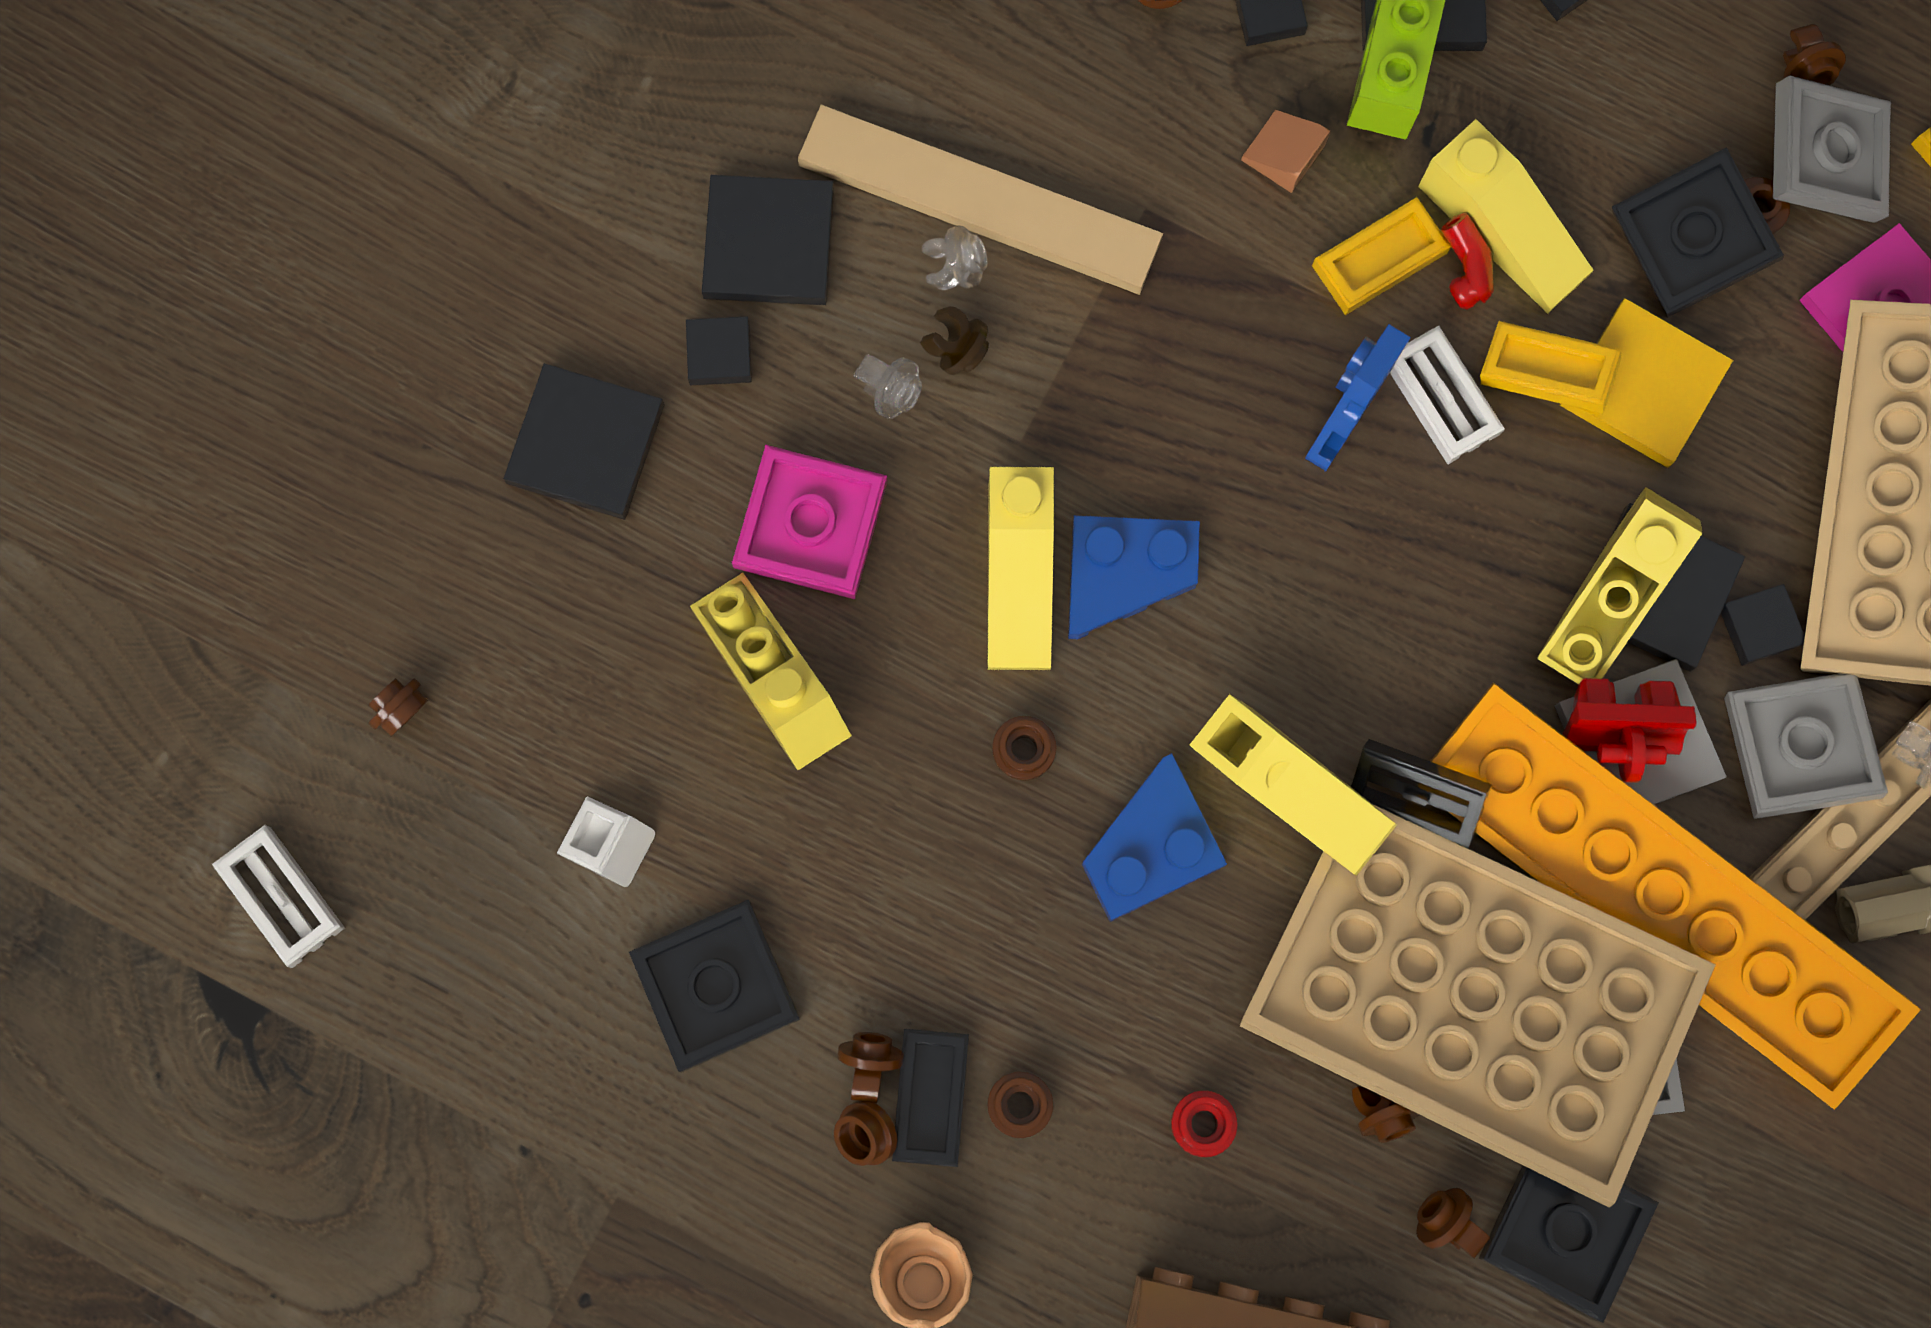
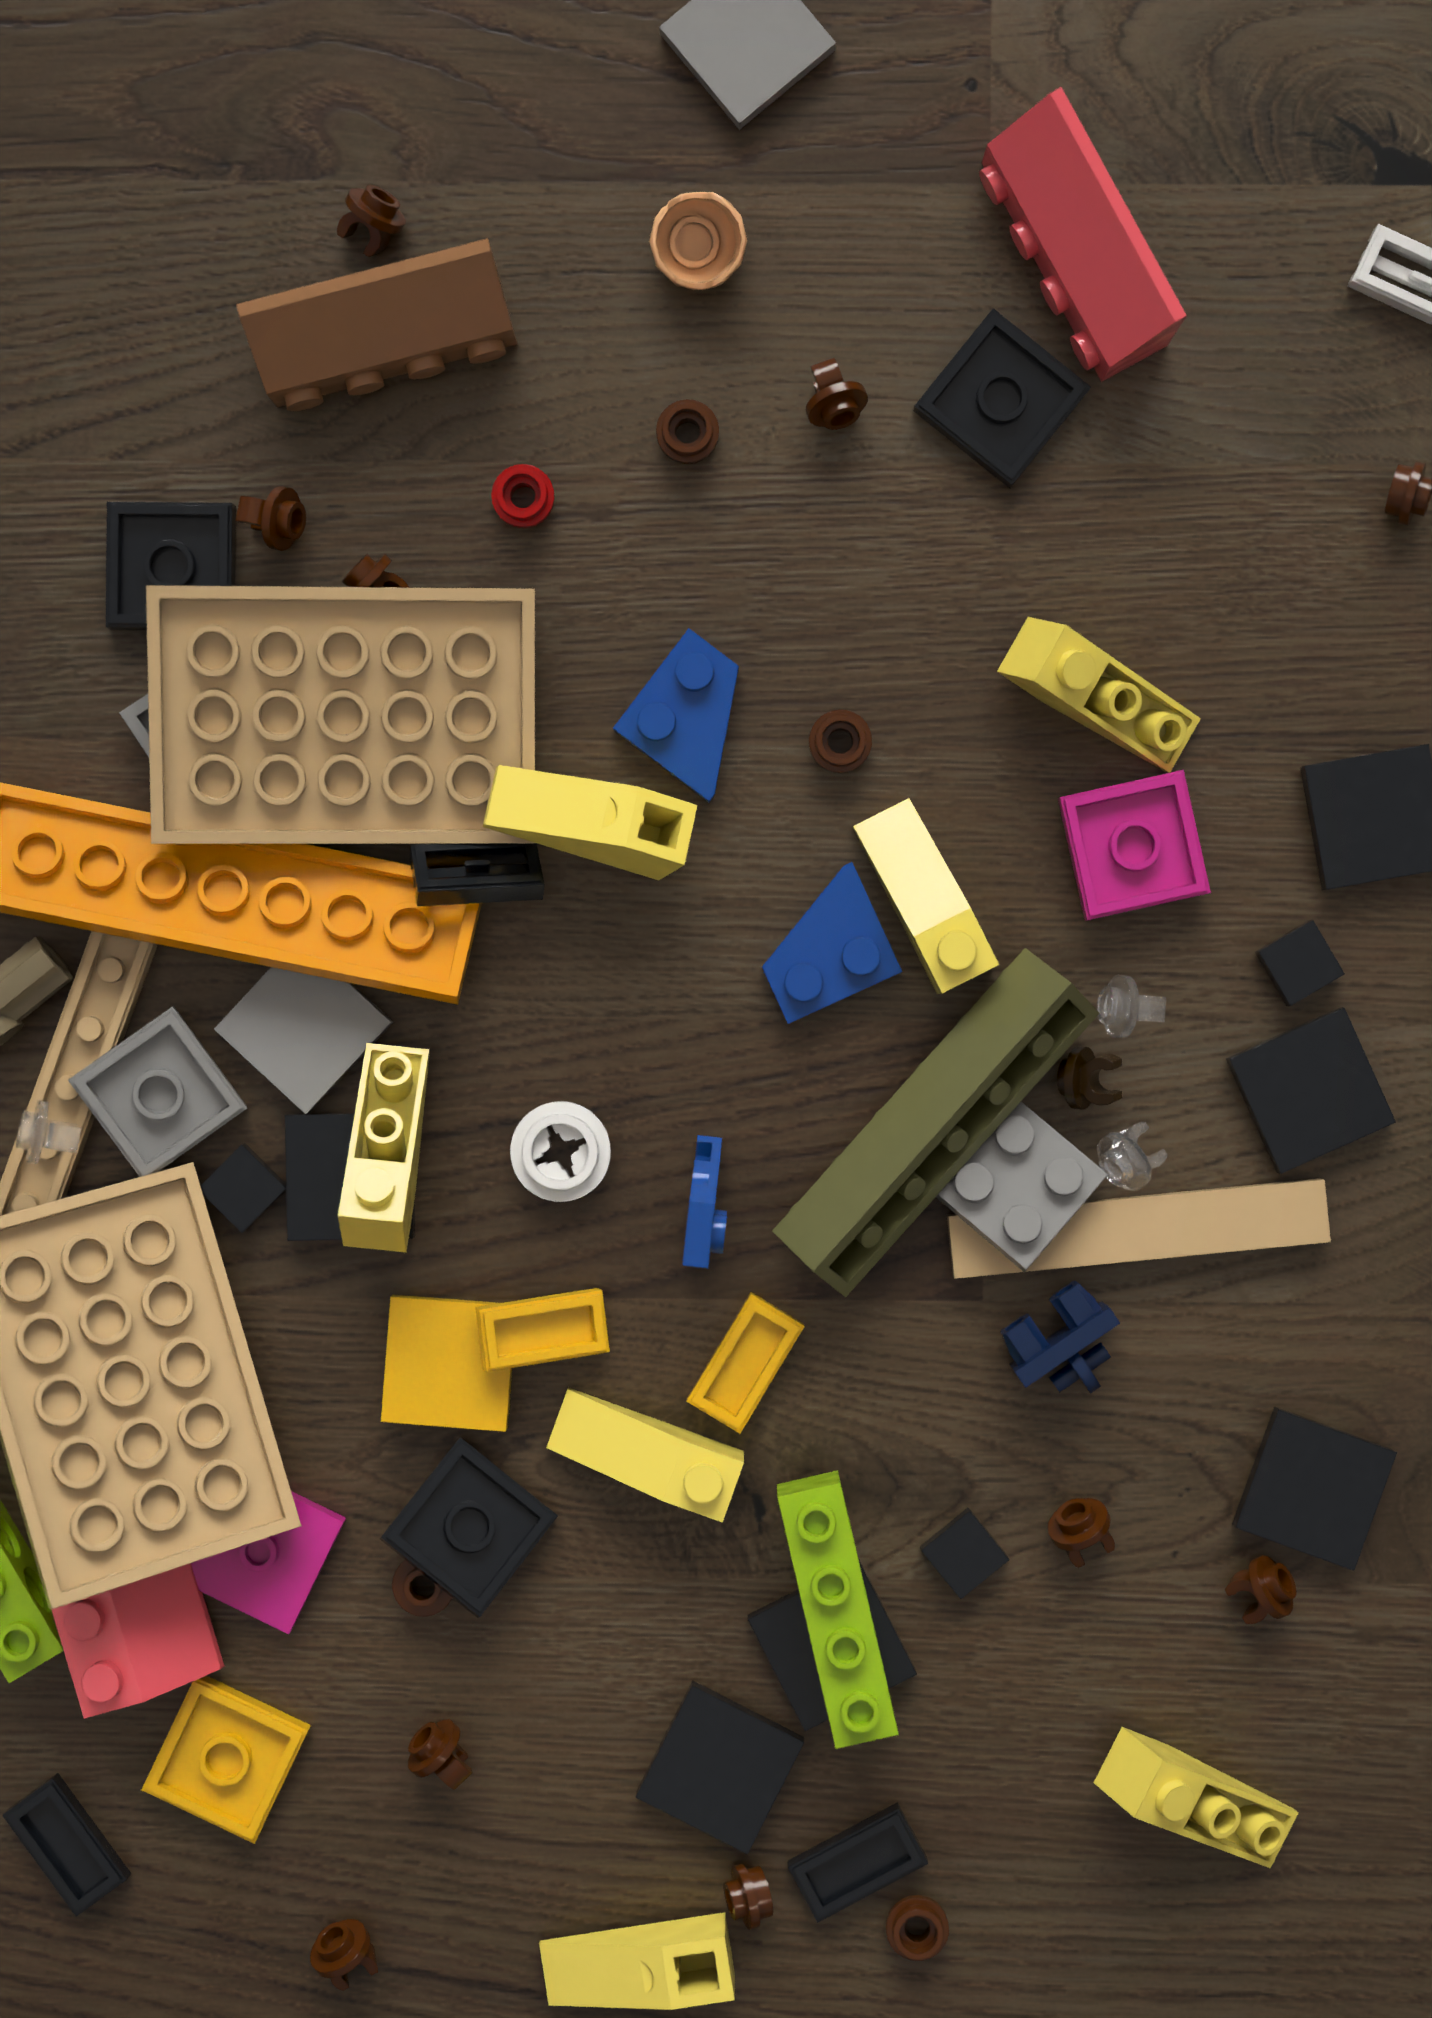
camera: 155 degrees right, 10 degrees up
(567, 1087) = (1080, 238): none -> coral slope
(607, 842) = (1161, 473): white slope -> none
(865, 1134) = (806, 336): reddish brown plate -> none
(931, 1097) = (767, 399): black tile -> none
(1066, 284) = (1022, 1186): none -> light grey plate
(1094, 126) = (1084, 1324): none -> dark blue hips
(1114, 367) = (935, 1122): none -> olive brick
(1286, 148) = (883, 1420): nougat slope -> none
(1464, 383) = (582, 1229): white tile -> none
(1476, 261) = (655, 1398): red arm -> none
(1478, 494) = (550, 1179): none -> white gear
(1629, 732) = (317, 1013): red hips -> none
(1831, 149) = (382, 1673): light grey tile -> none

